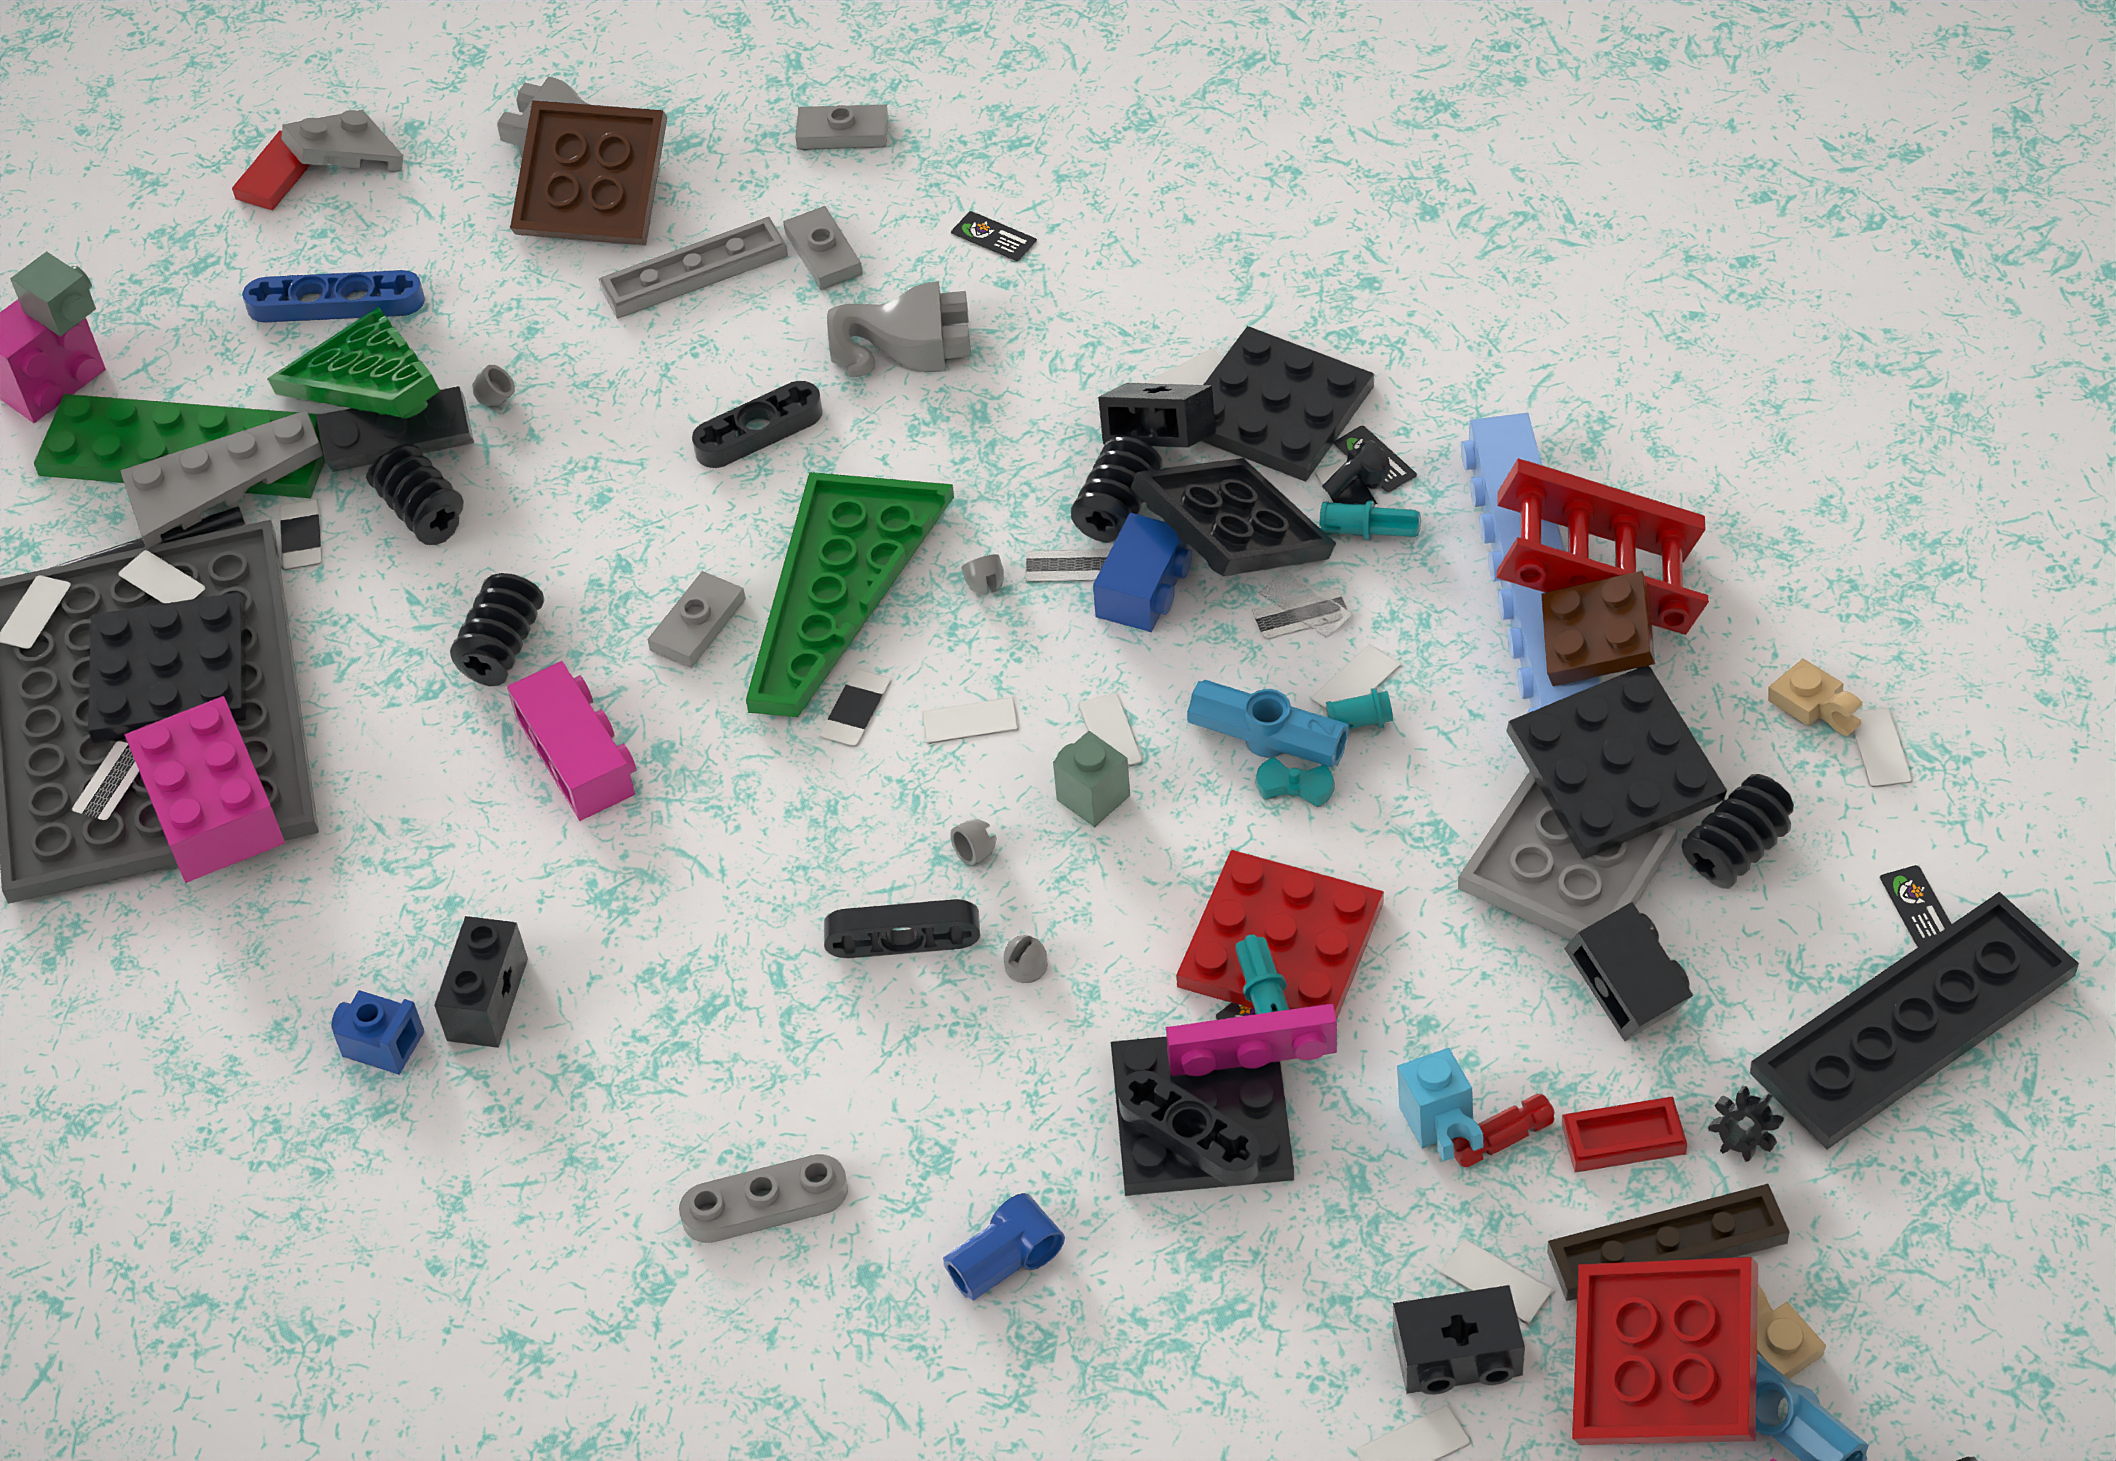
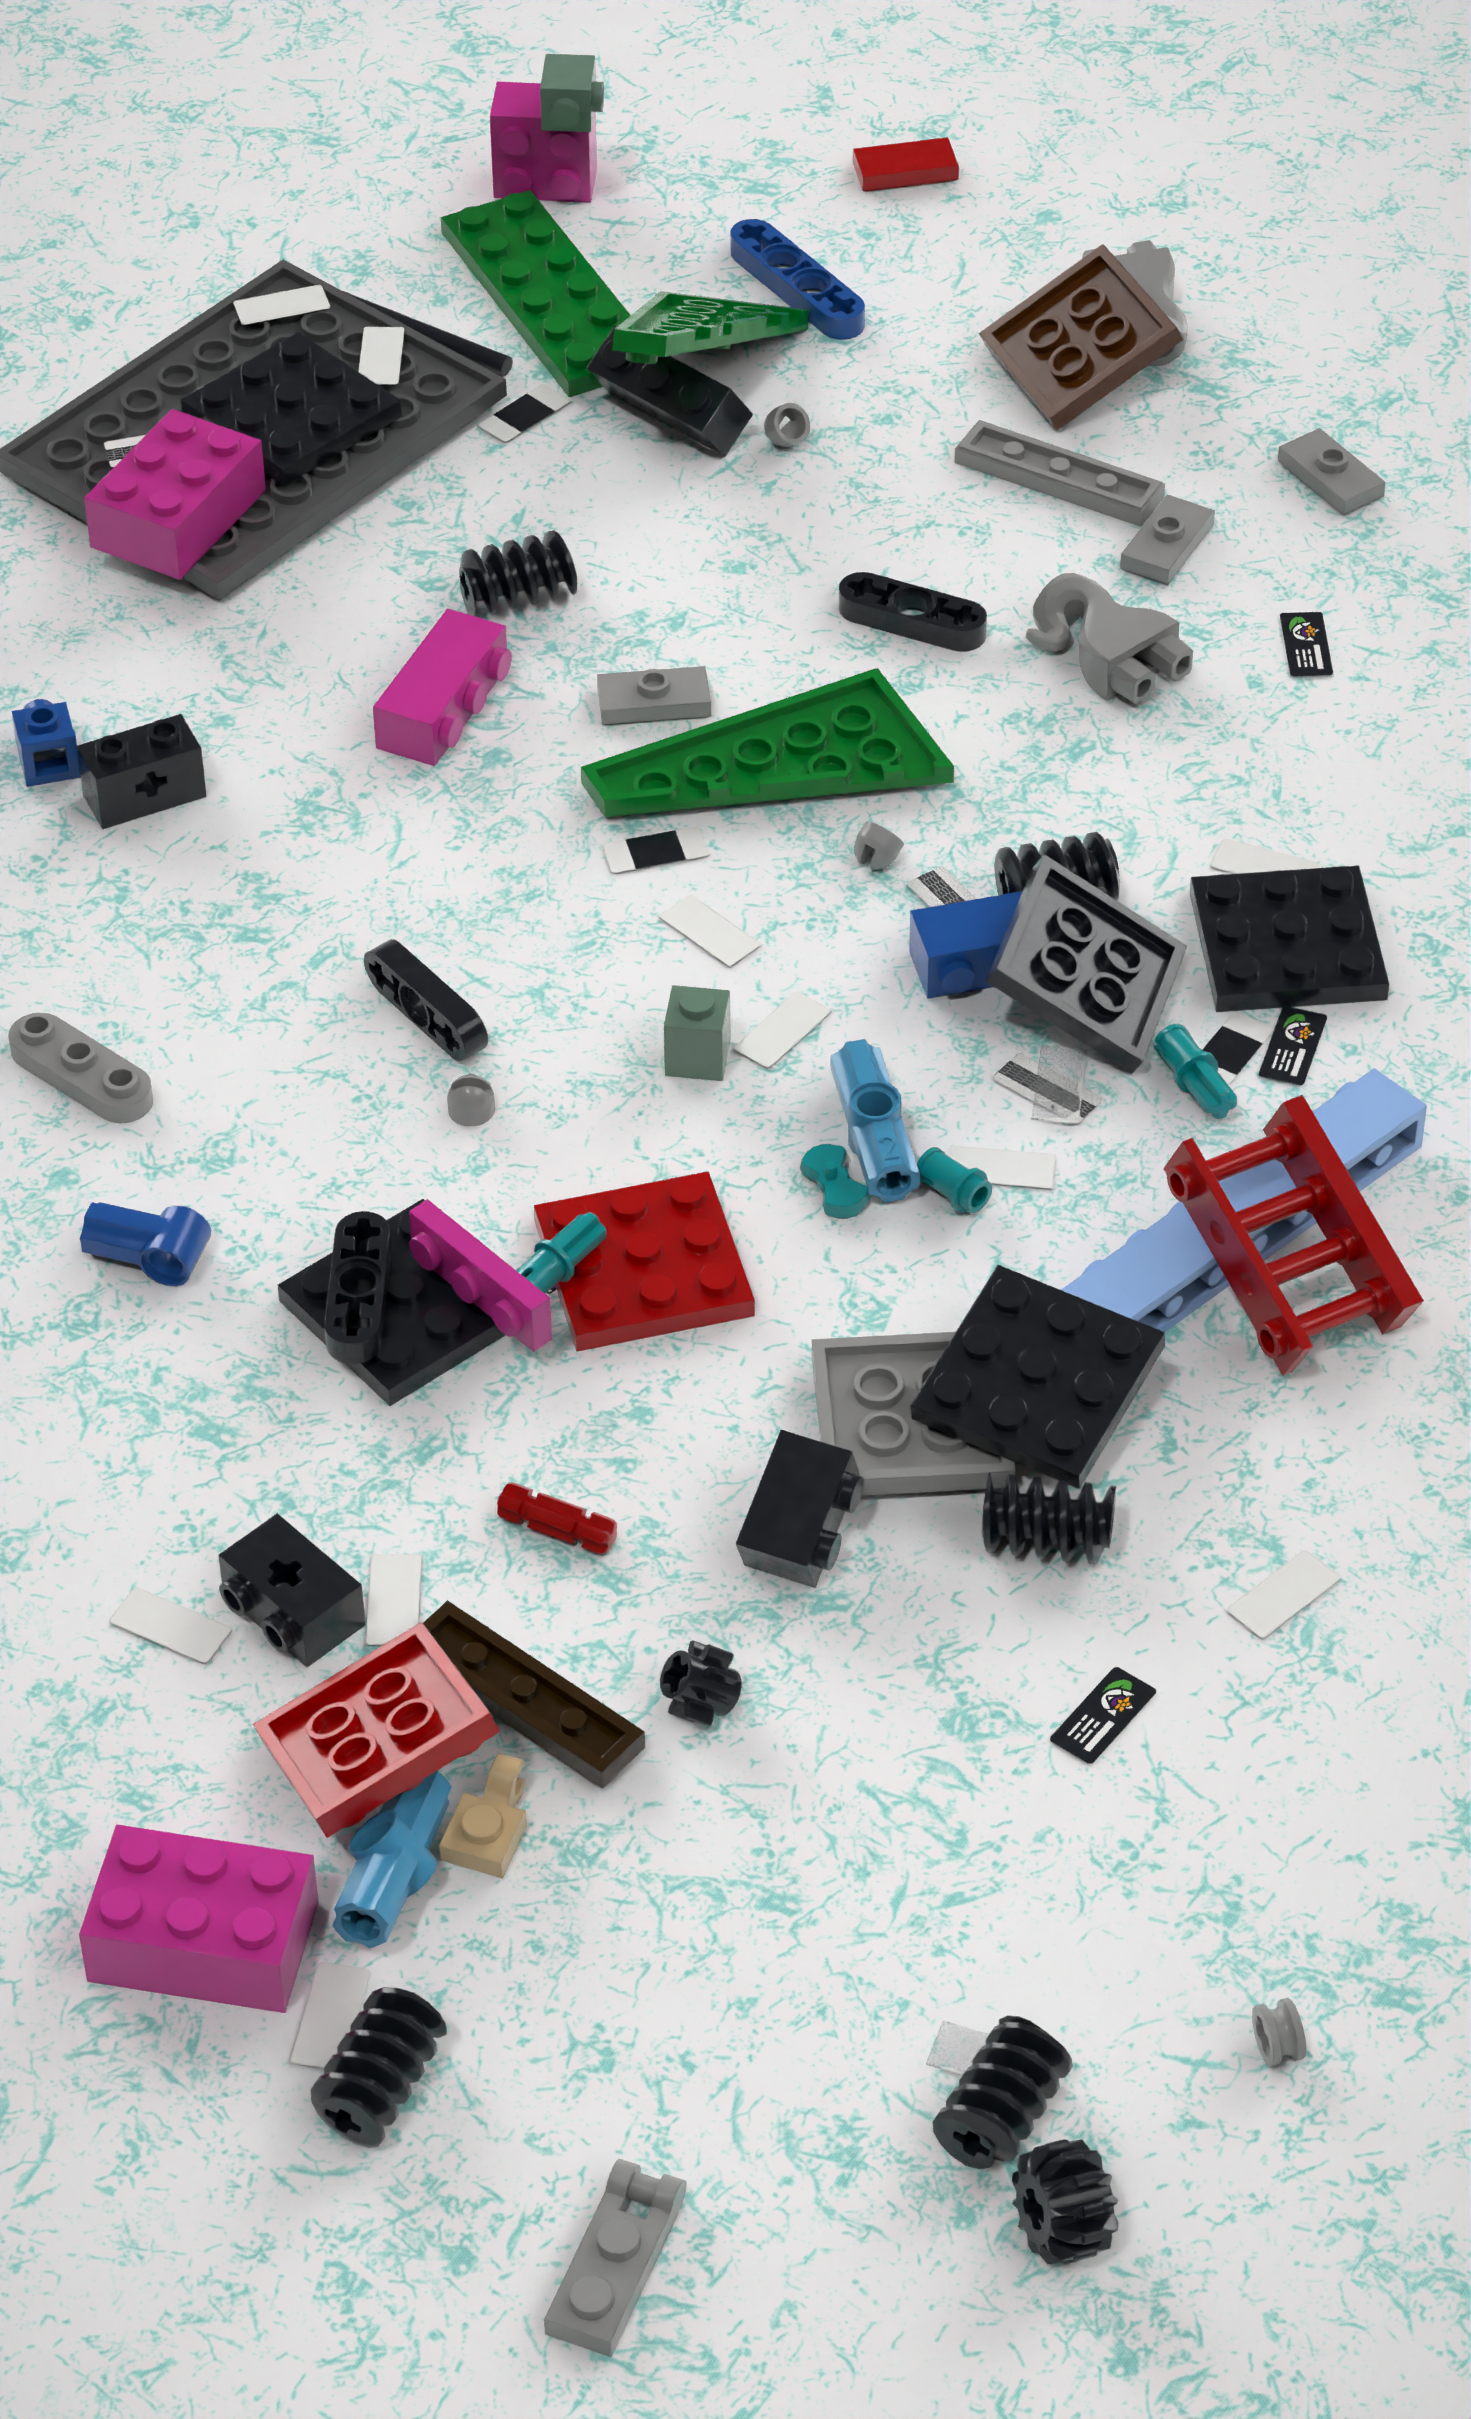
camera: 50 degrees right, 5 degrees down
(195, 479) = (511, 312): light grey wing -> none
(340, 141) = (970, 177): light grey wing -> none
(417, 493) = (616, 446): black piece -> none
(972, 841) = (563, 997): light grey hinge -> none
(1158, 413) = (1161, 849): black brick -> none
(1366, 463) = (1257, 1034): black plate -> none
(1438, 1102) = (535, 1446): medium azure brick -> none
(1597, 628) = (1174, 1274): reddish brown plate -> none
(1624, 1134) = (629, 1610): red tile -> none
(1814, 694) = (1291, 1504): tan plate -> none
(1913, 1019) = (947, 1762): black plate -> none

